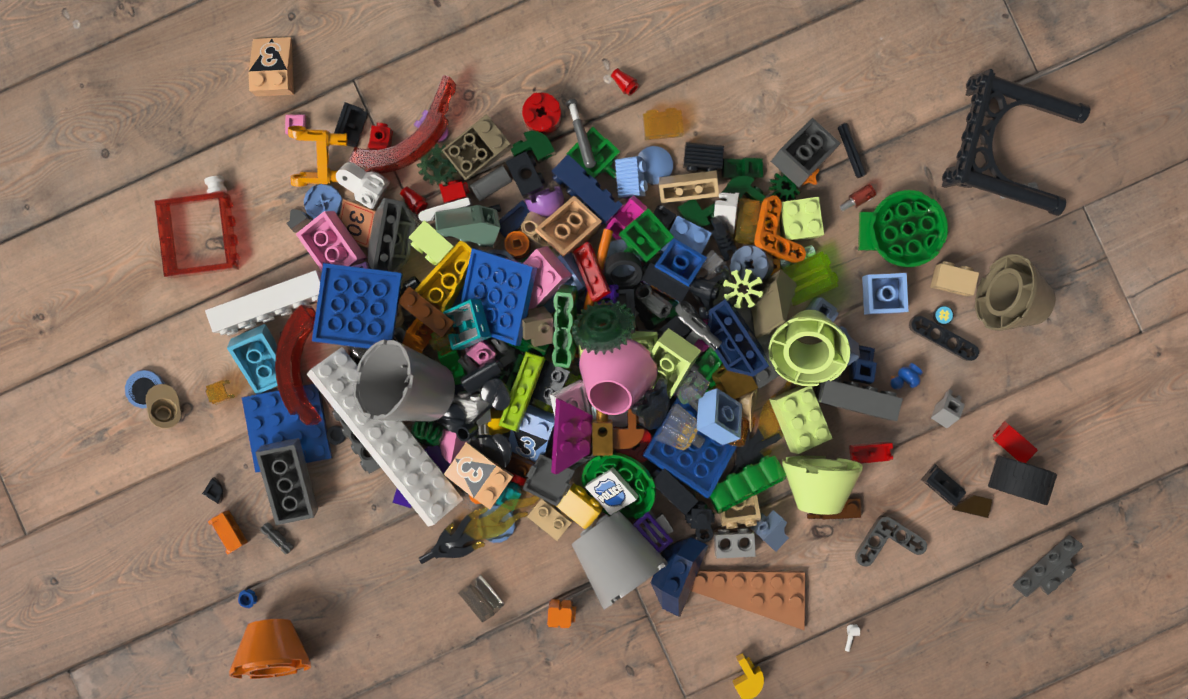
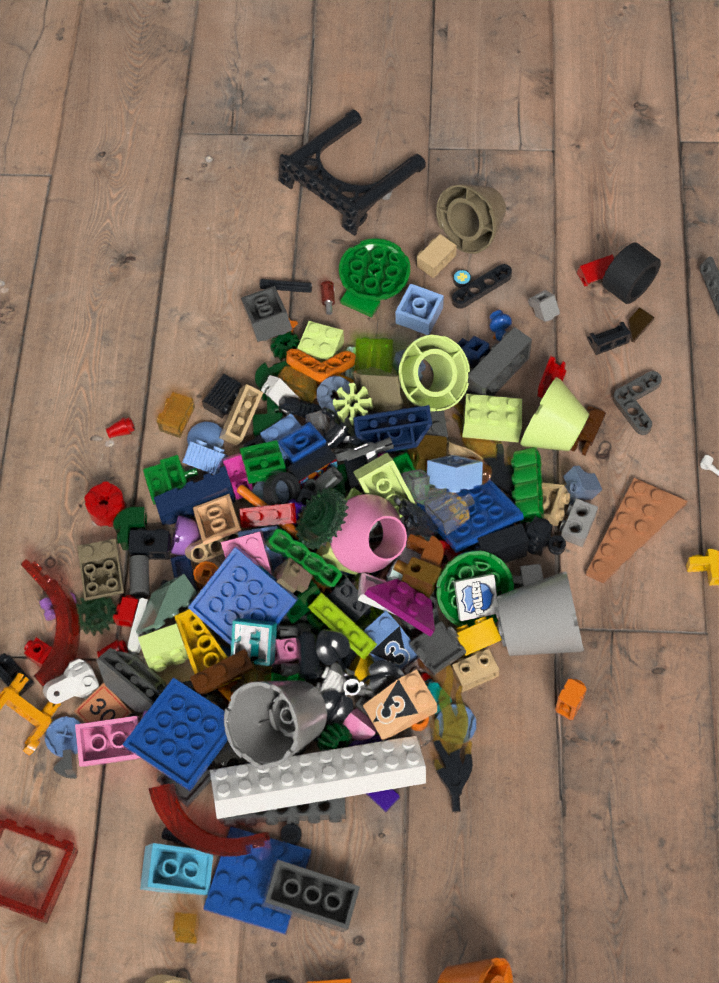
camera: 65 degrees left, 25 degrees down
(264, 304) = (128, 828): white brick -> none
(276, 538) = (362, 946): dark grey axle -> none
(481, 598) = (522, 772): clear smoke brick -> none
(584, 145) = (150, 479): dark grey piece -> none
(642, 520) = (515, 577): dark purple tile -> none
(676, 579) = (588, 587): dark blue wedge -> none
(742, 167) = (250, 366): dark green slope -> none

